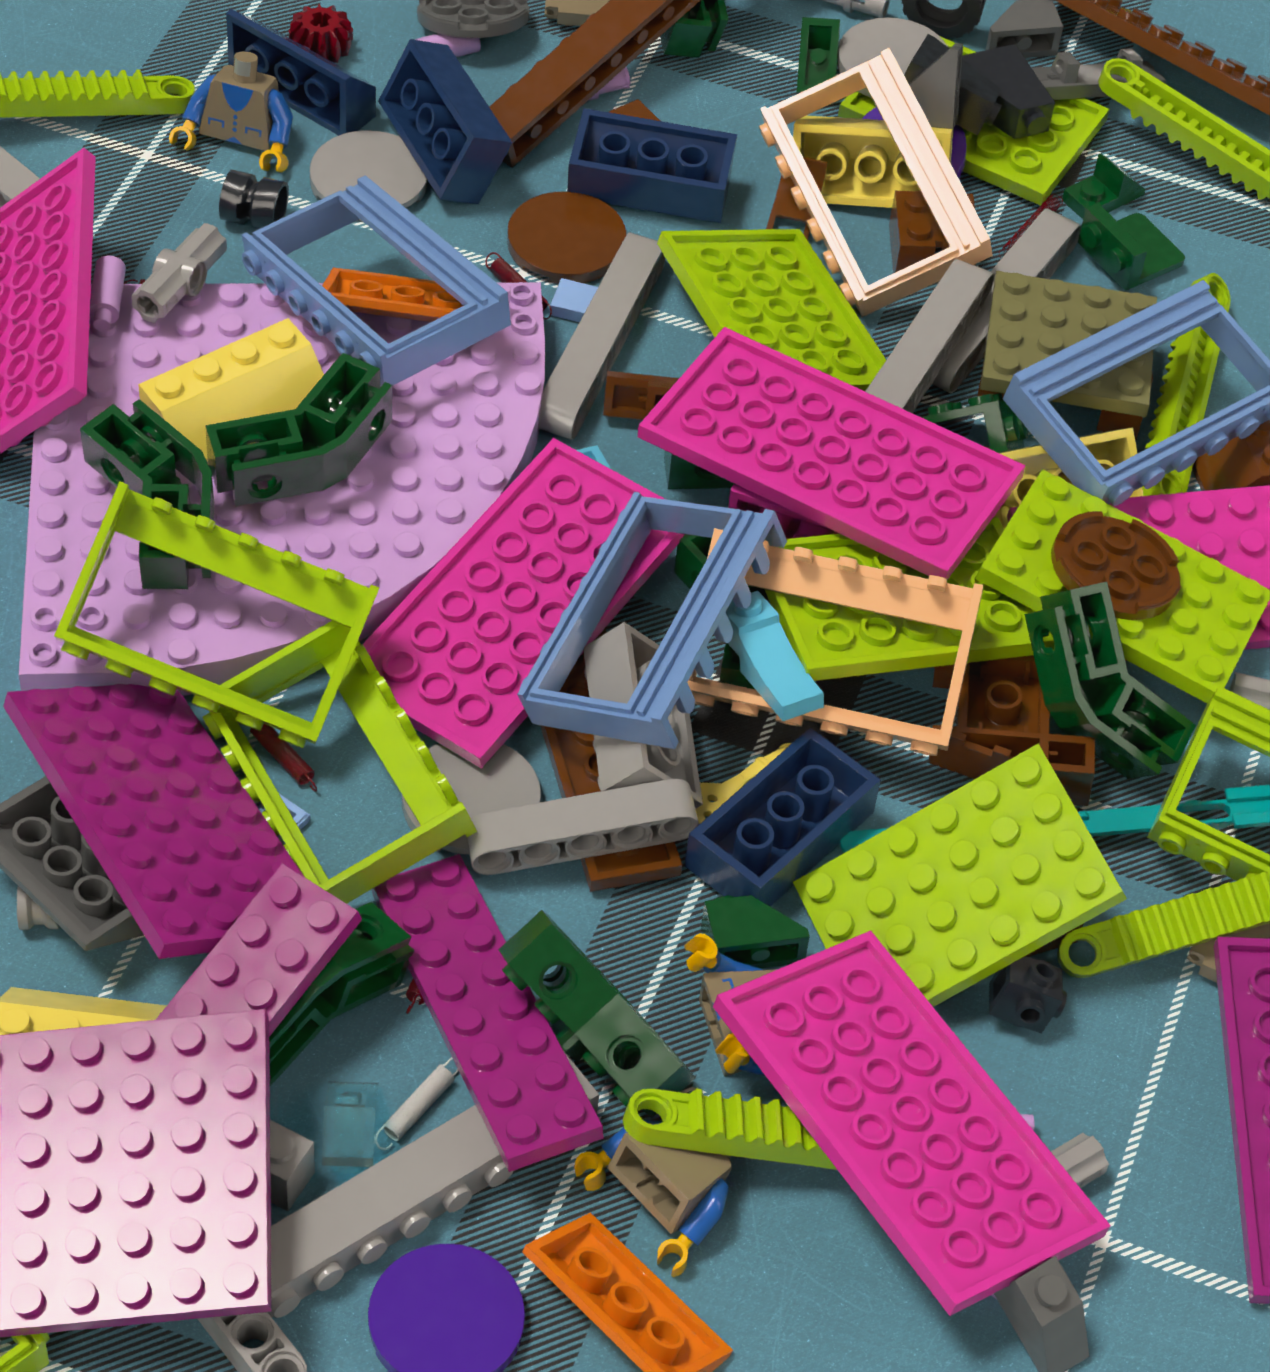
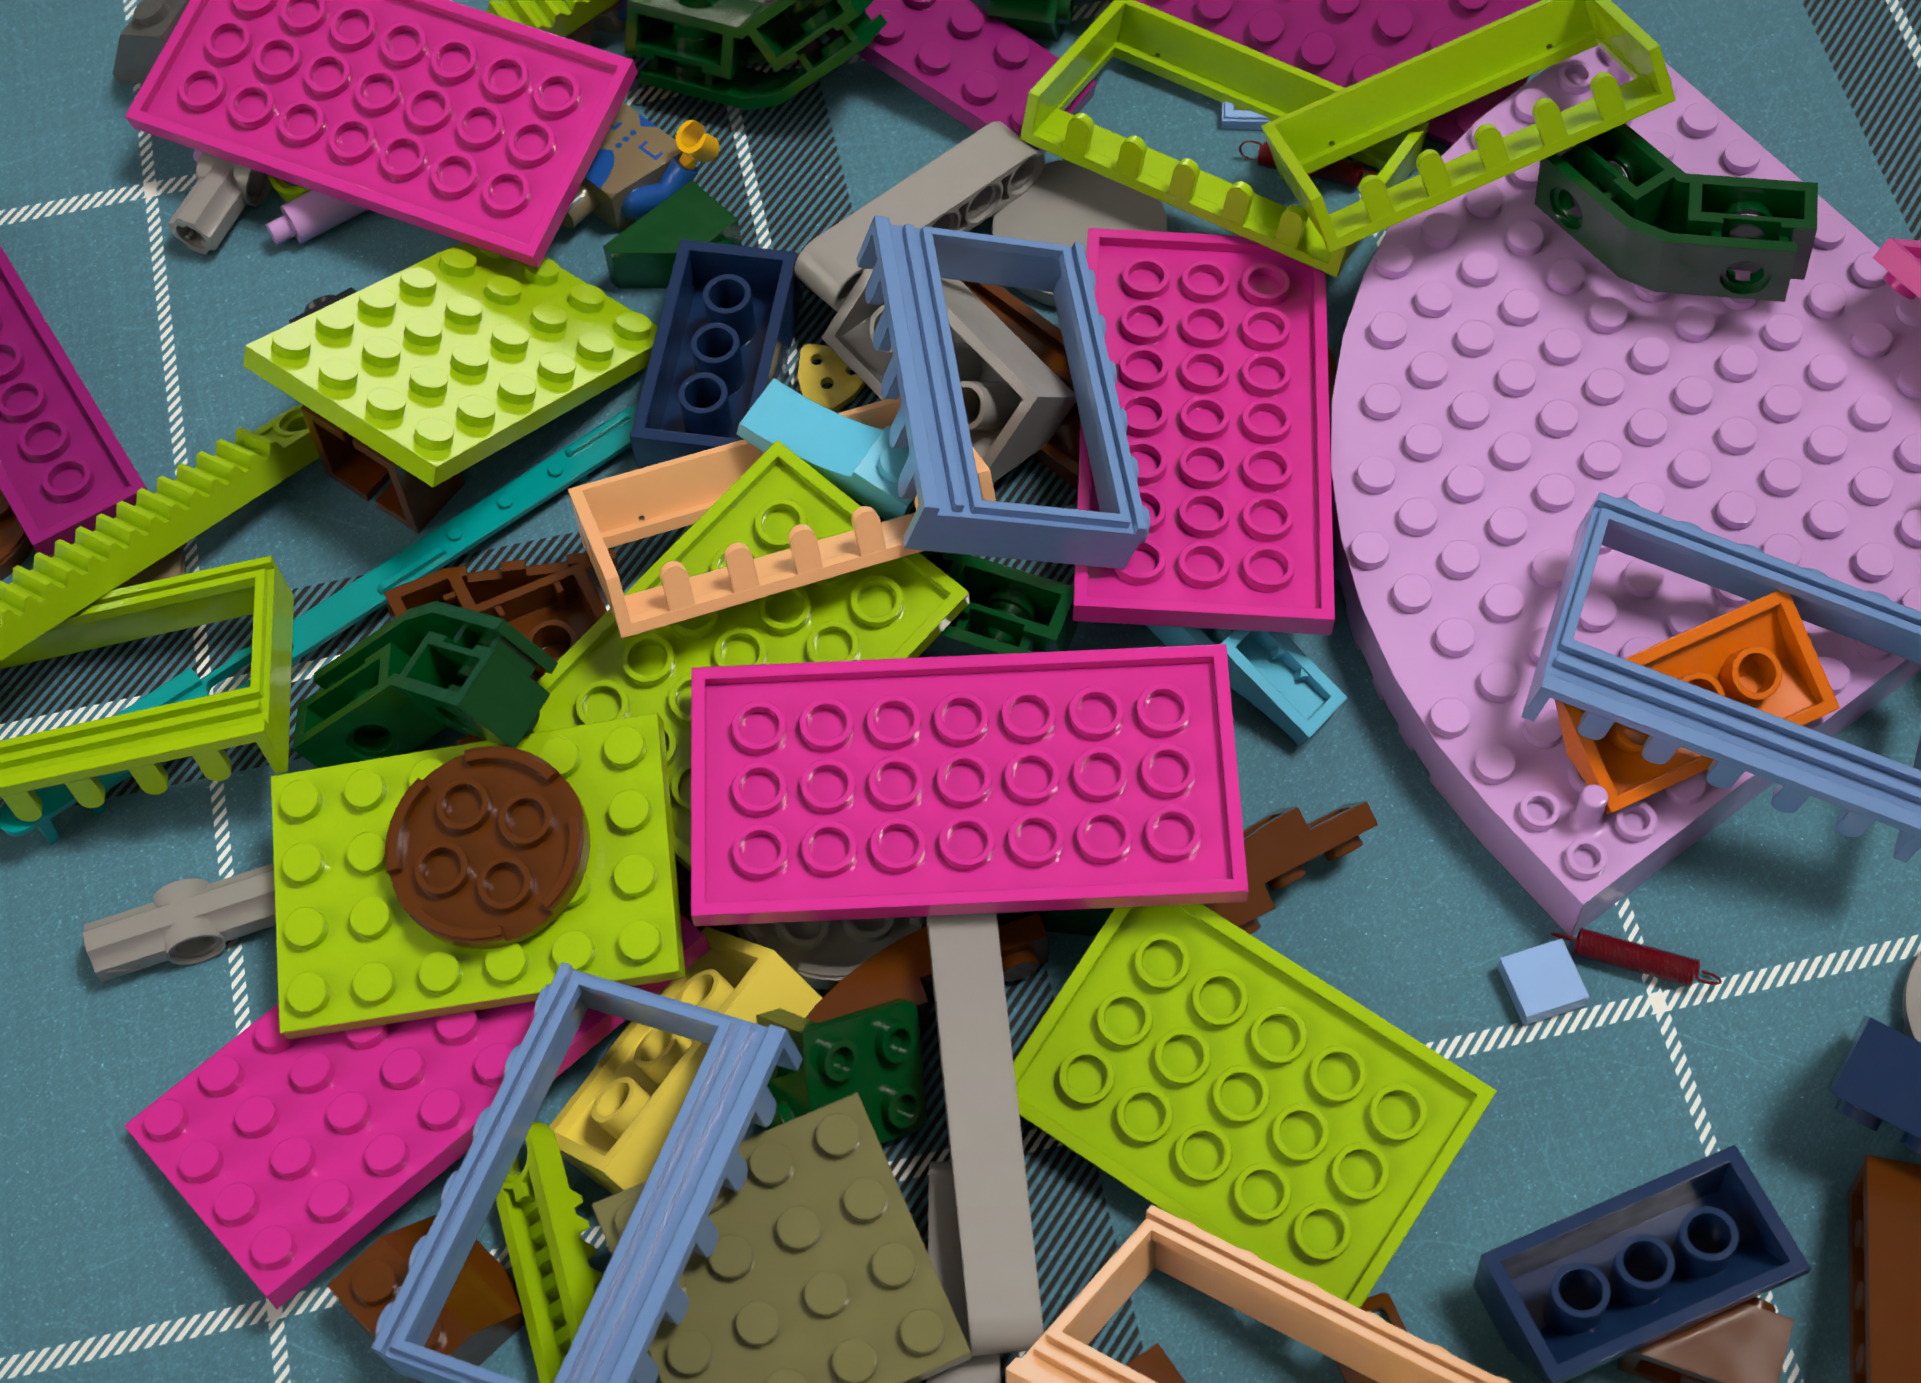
camera: 155 degrees right, 10 degrees up
(238, 381) = (1739, 418): light yellow slope -> none
(303, 446) = (1613, 332): dark green brick -> none
(565, 236) = (1650, 1088): reddish brown tile -> none
(600, 336) = (1458, 938): light grey beam -> none

